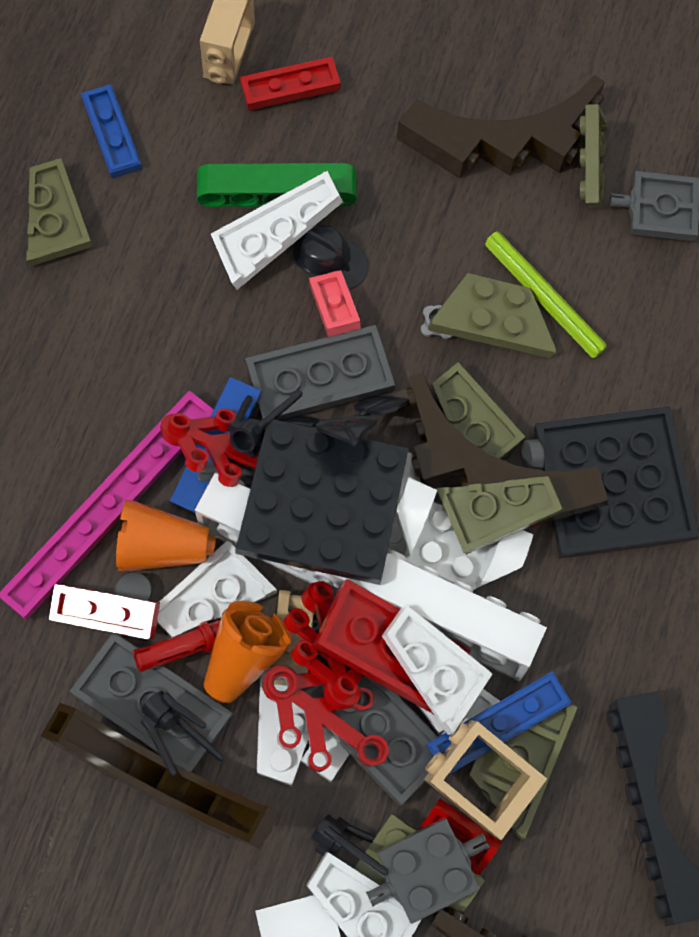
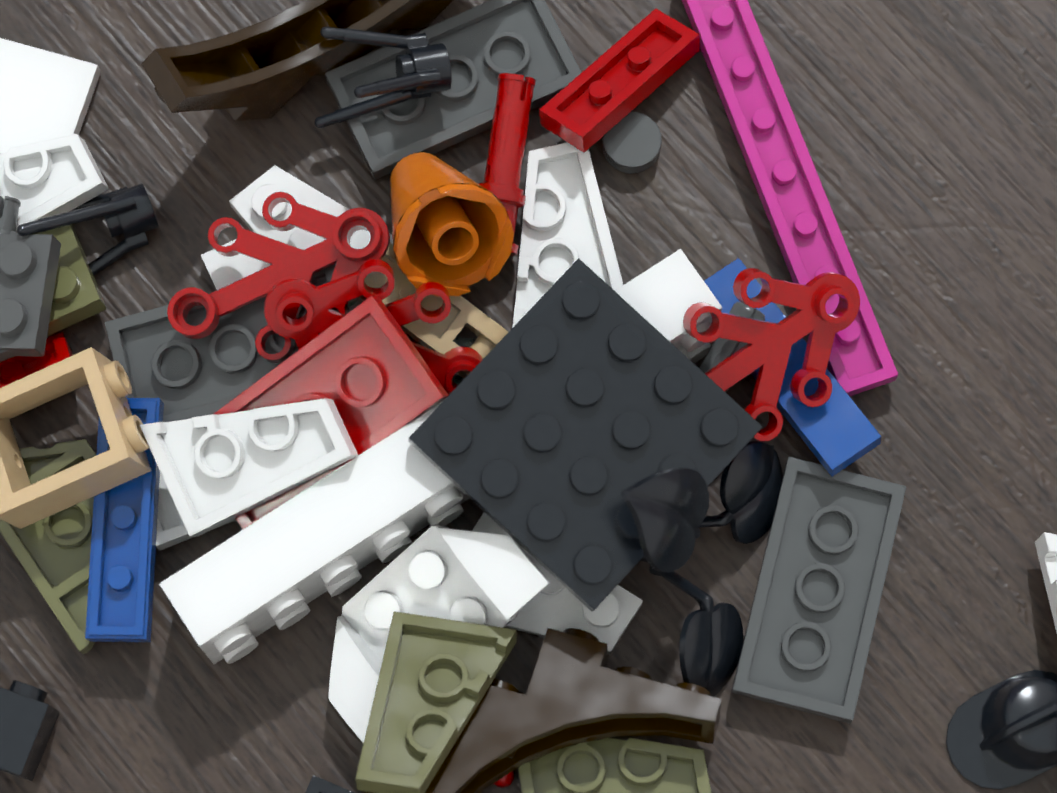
camera: 125 degrees right, 5 degrees up
(160, 539) = (681, 196): orange cone -> none
(248, 434) = (757, 389): black plant -> none
(334, 303) = (926, 678): coral plate -> none

